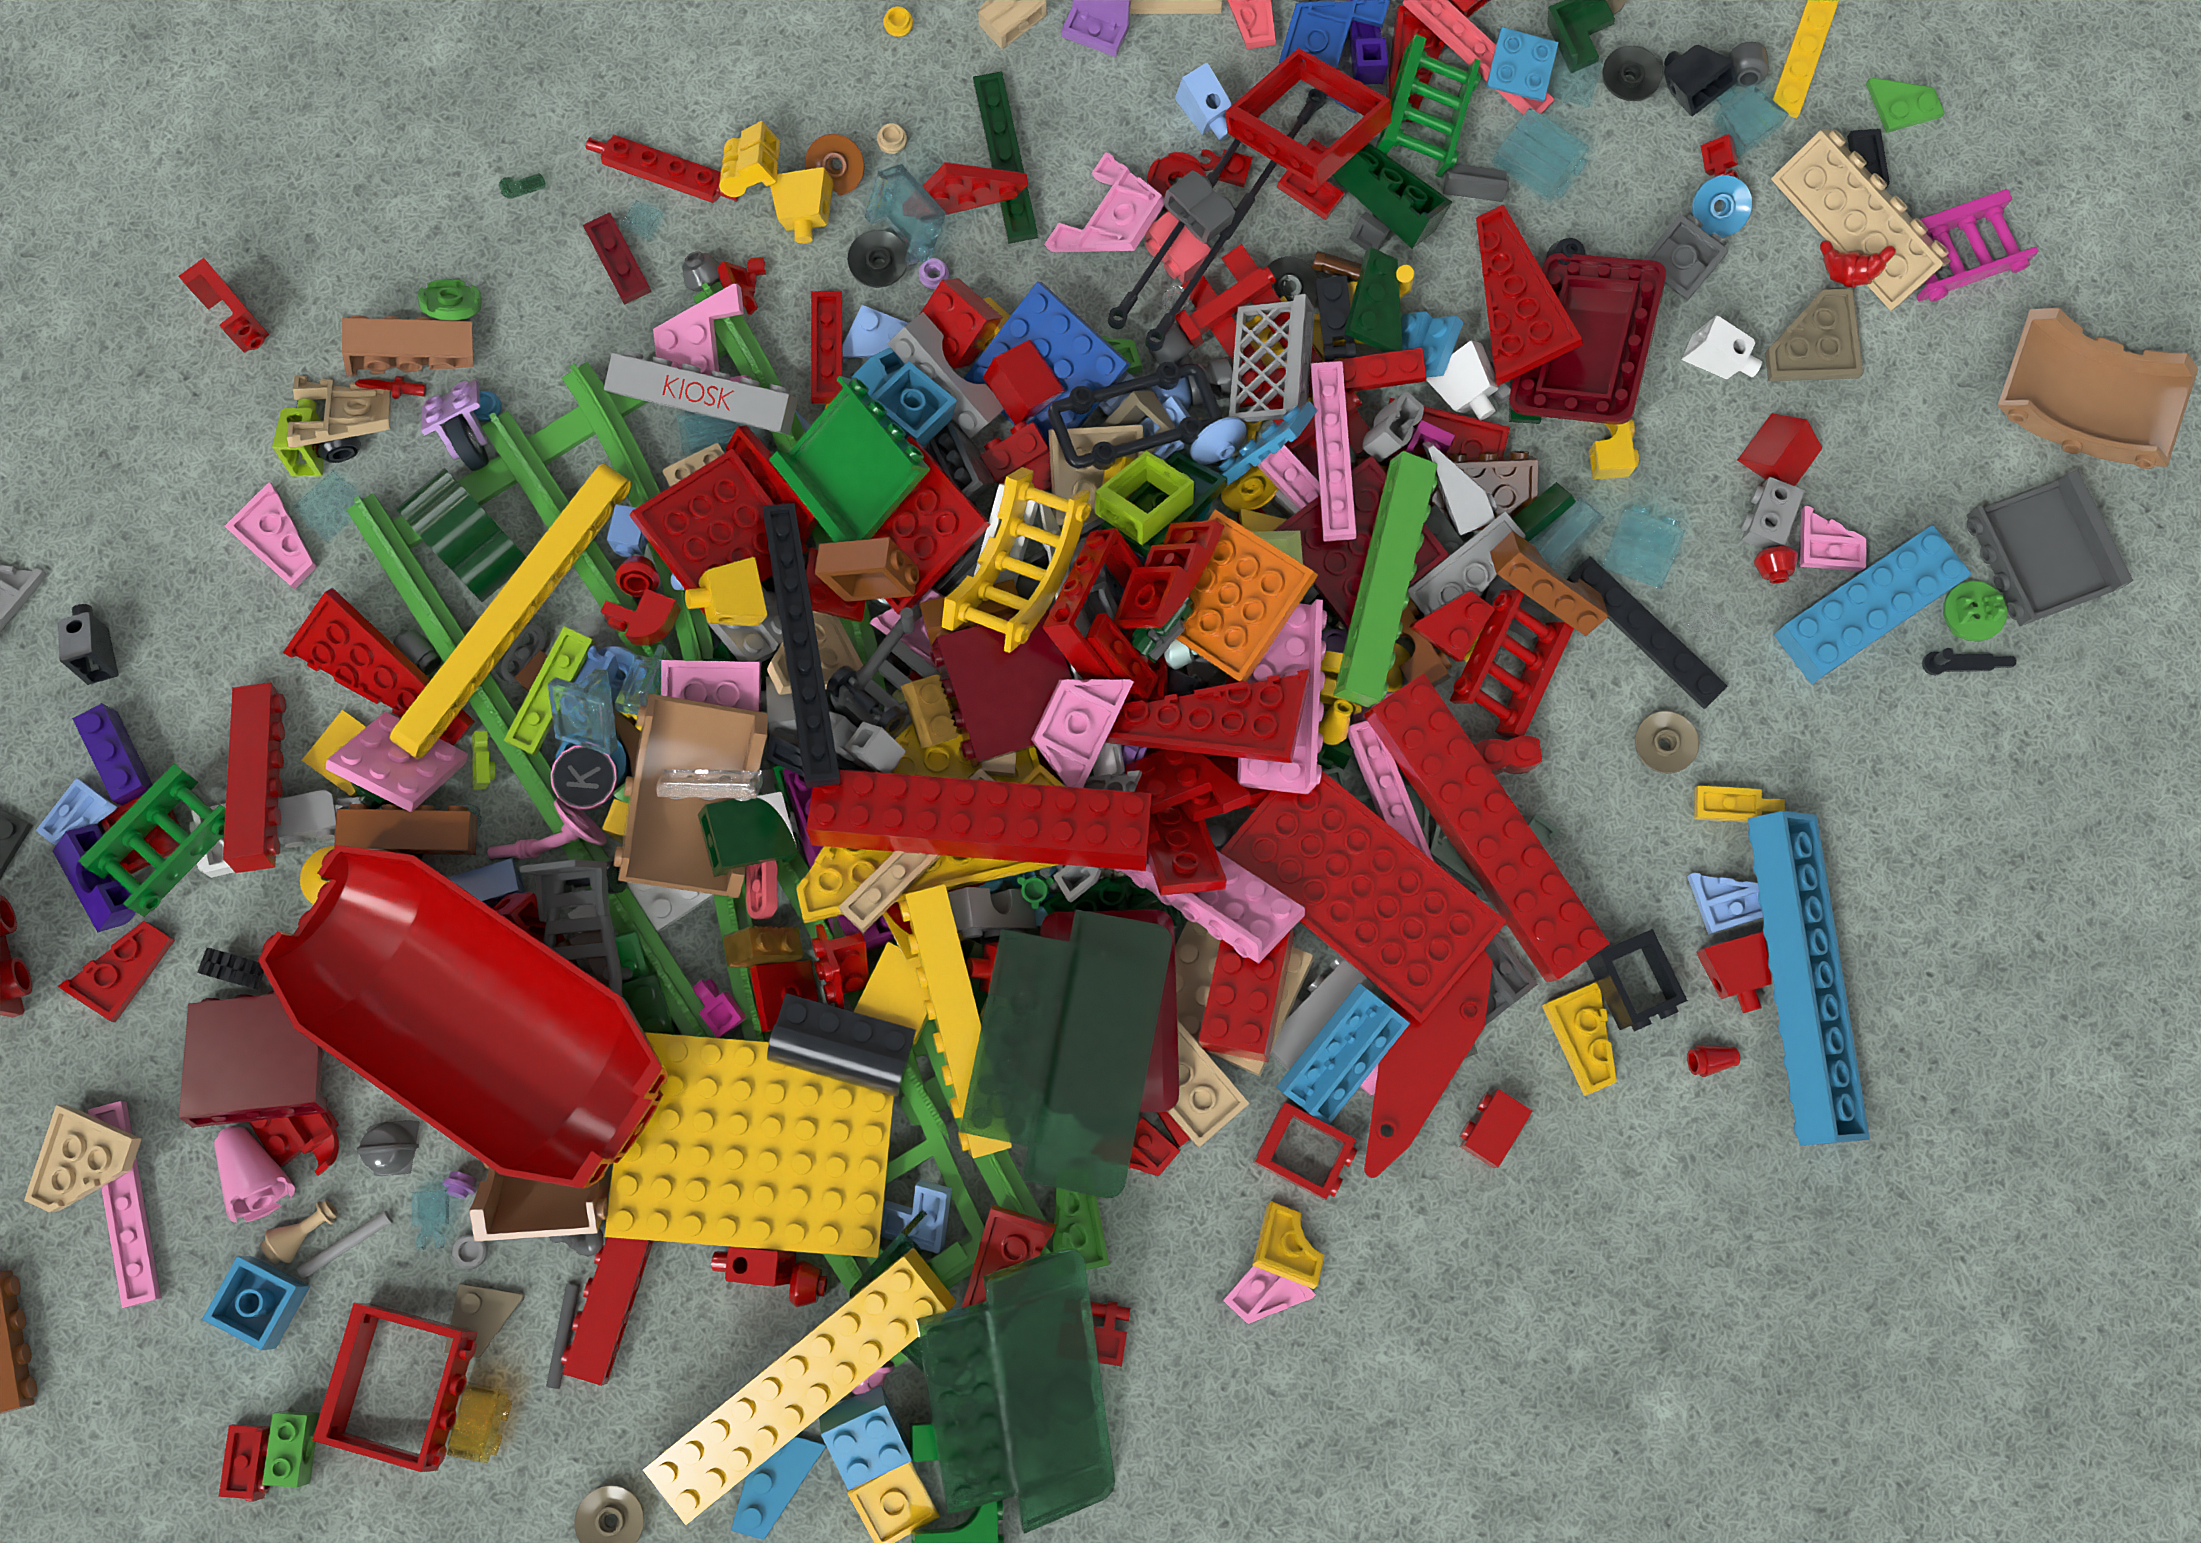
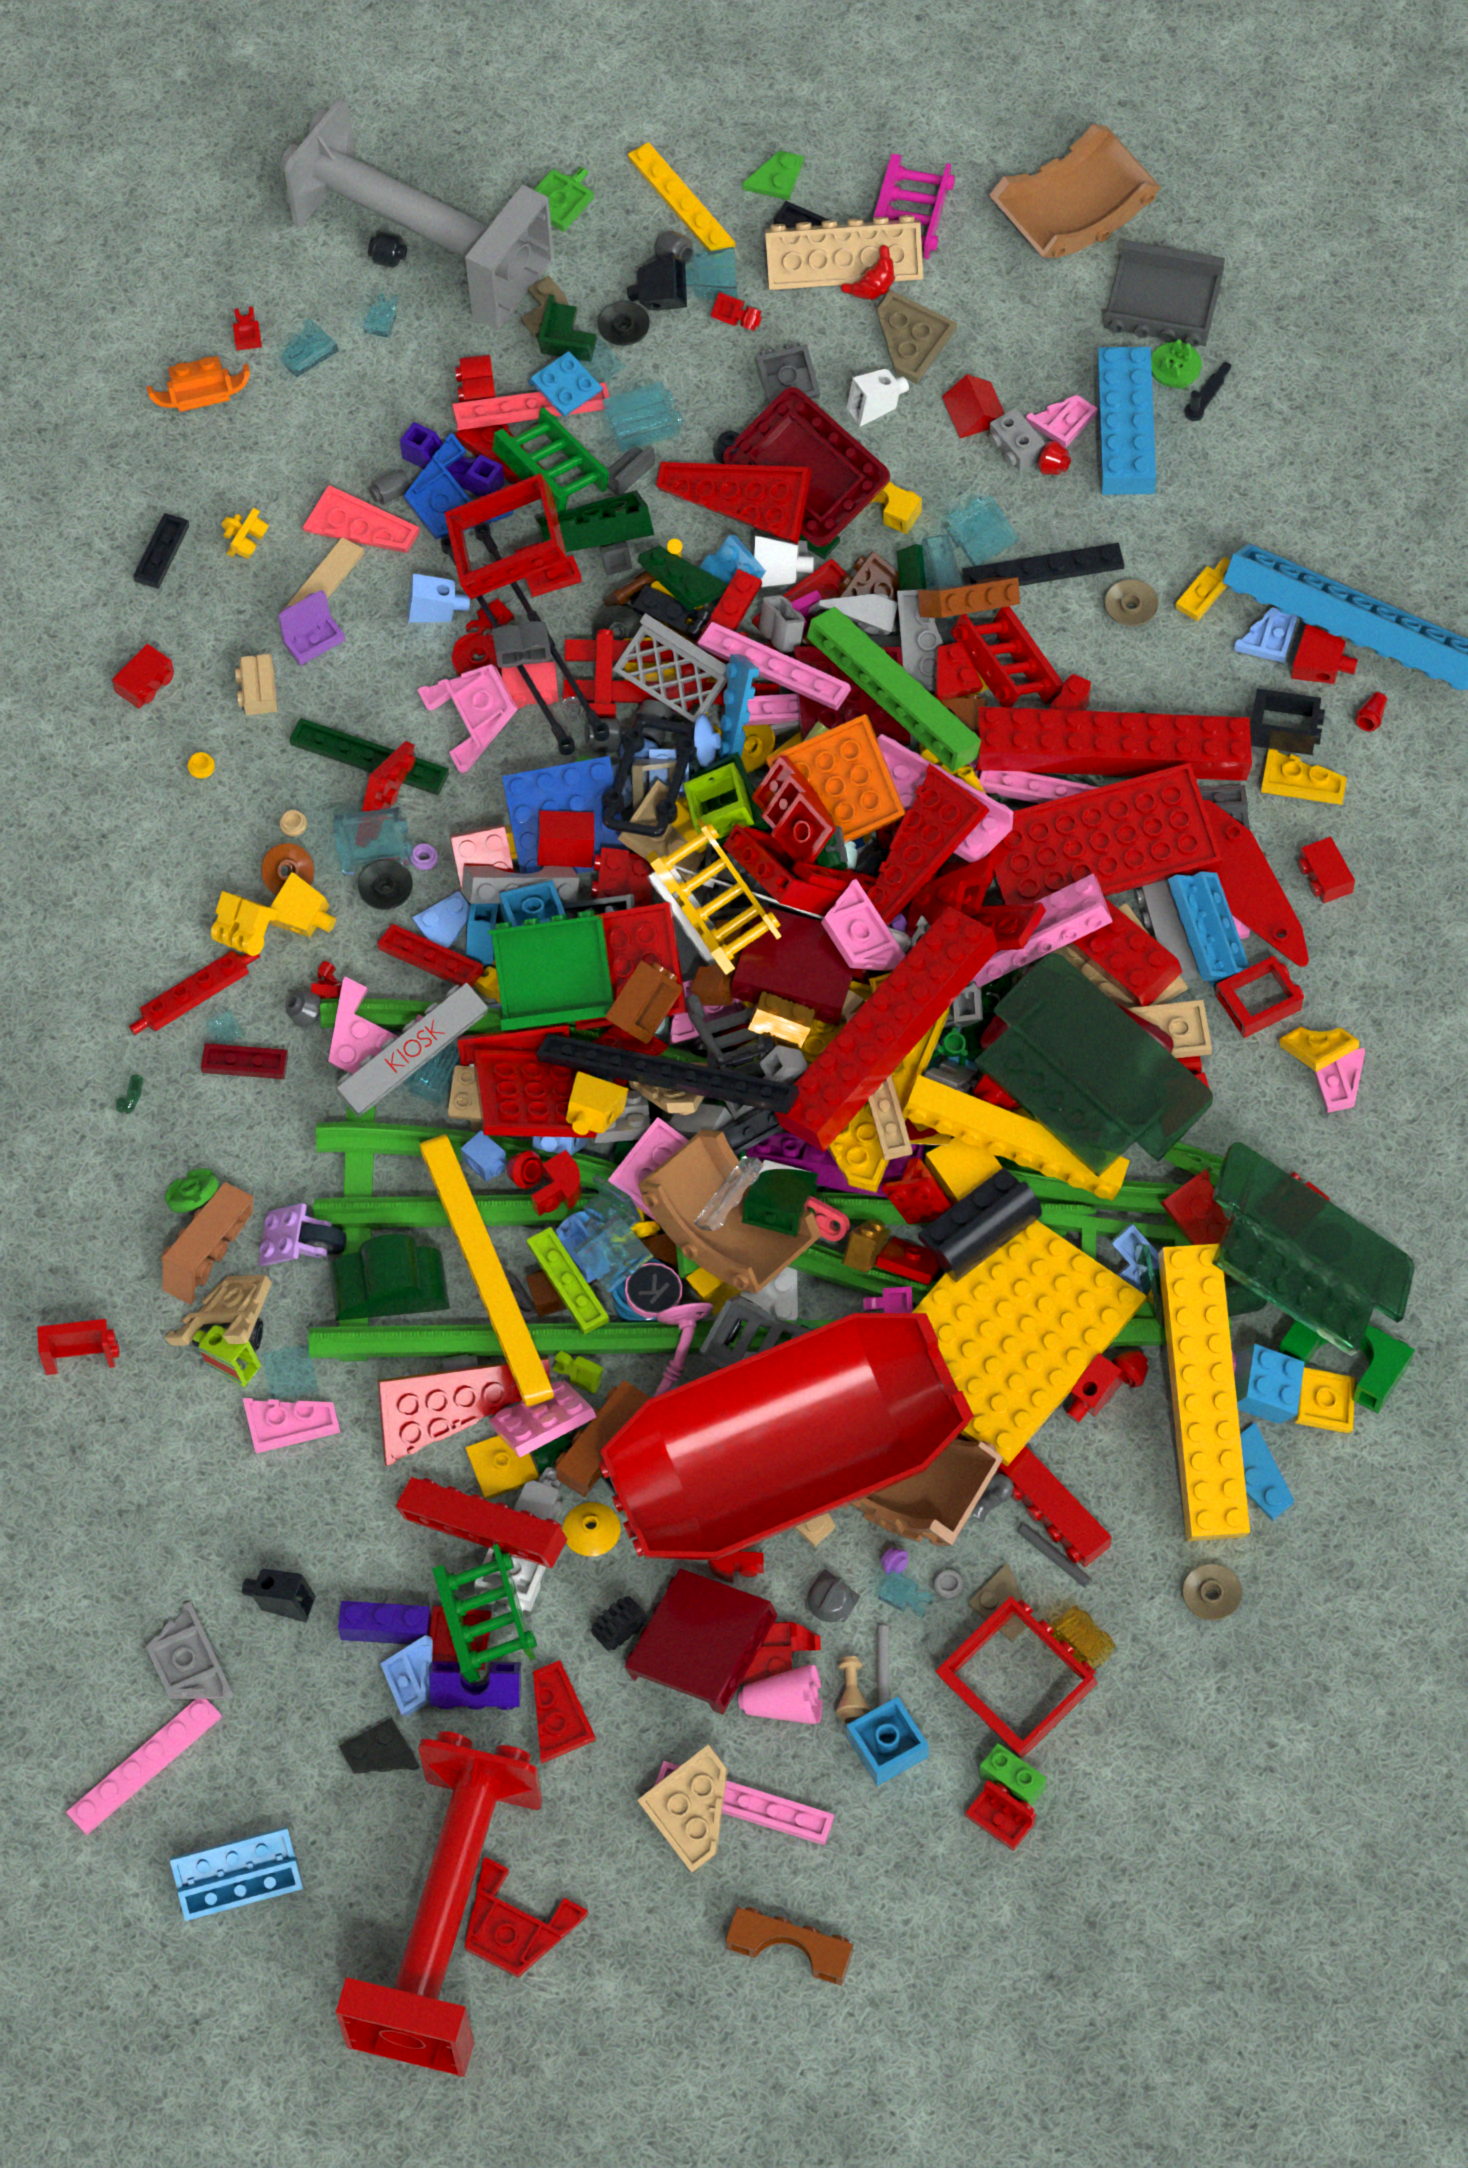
camera: 50 degrees left, 15 degrees down
(397, 387) = (231, 1269): red piece -> none
(1735, 208) = (773, 323): dark azure dish -> none

